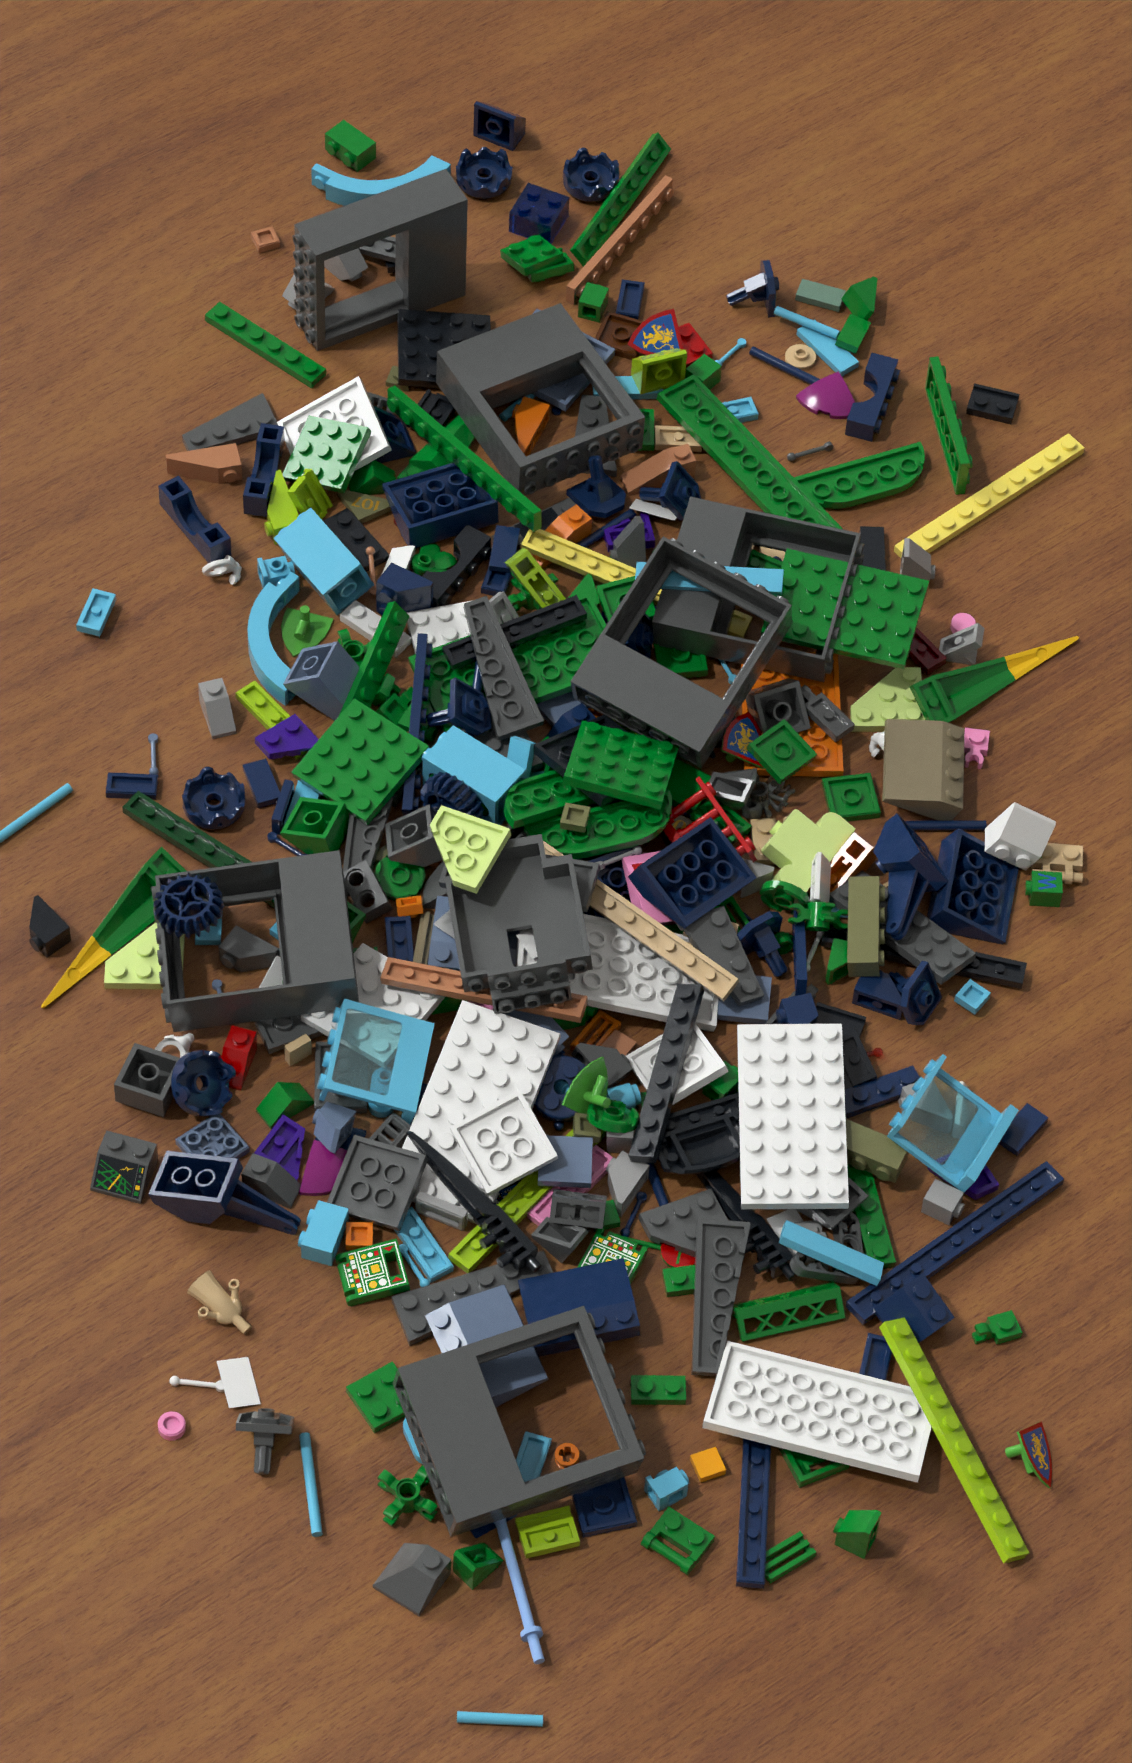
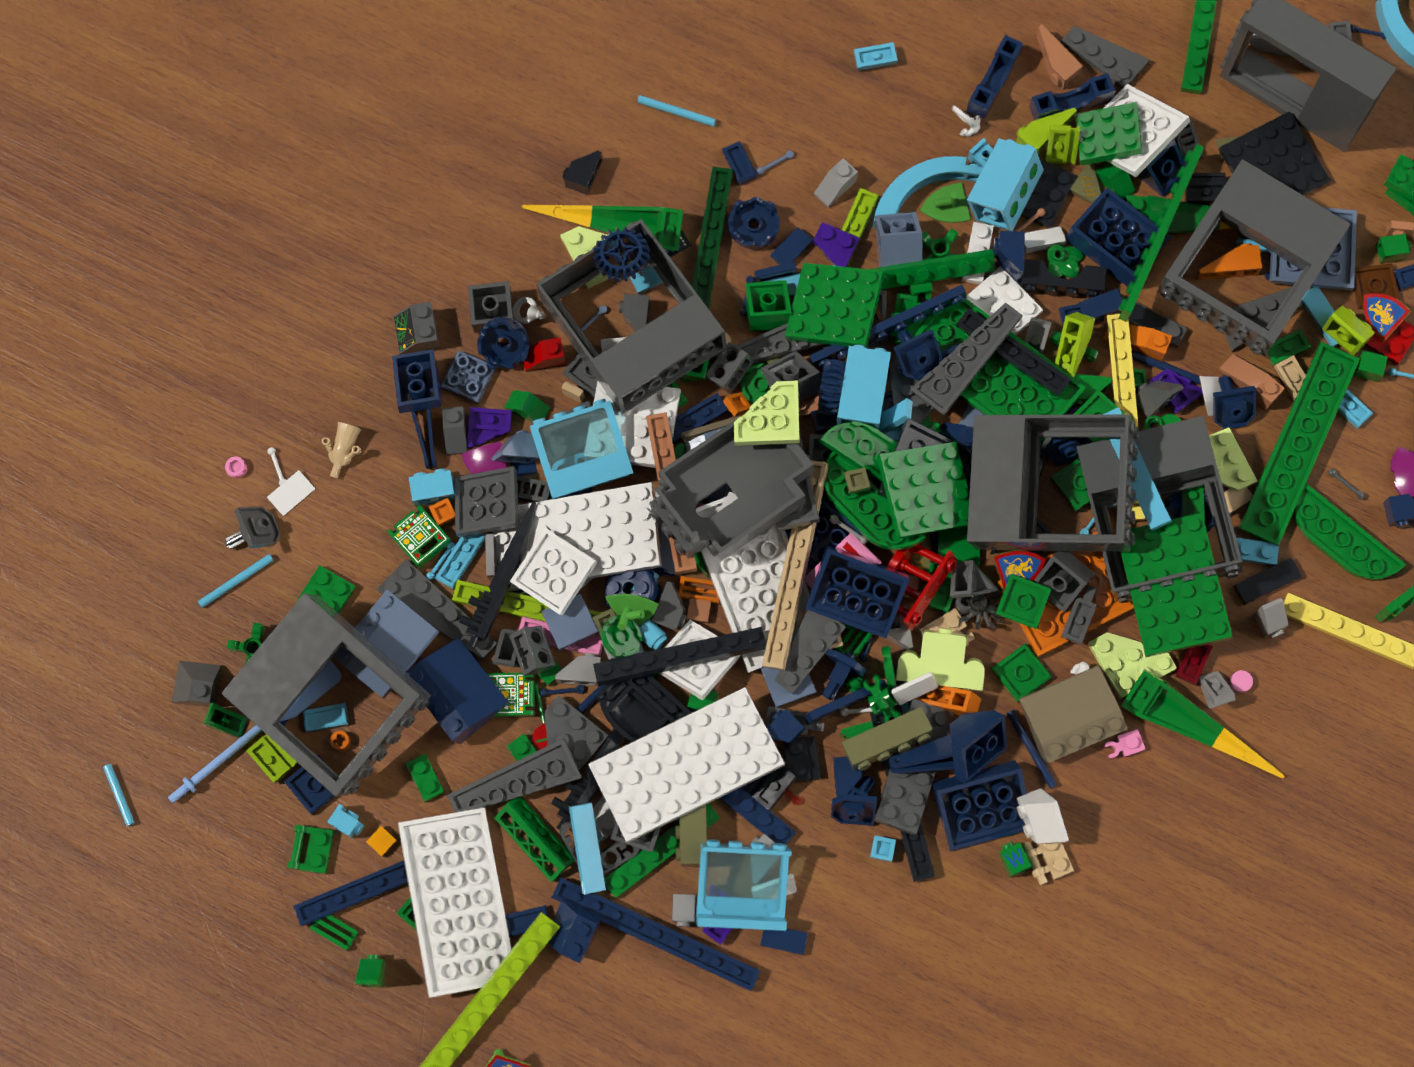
camera: 70 degrees right, 20 degrees up
(599, 494) = (1199, 347): dark blue piece -> none
(1000, 1327) = (600, 1000): green plate -> none

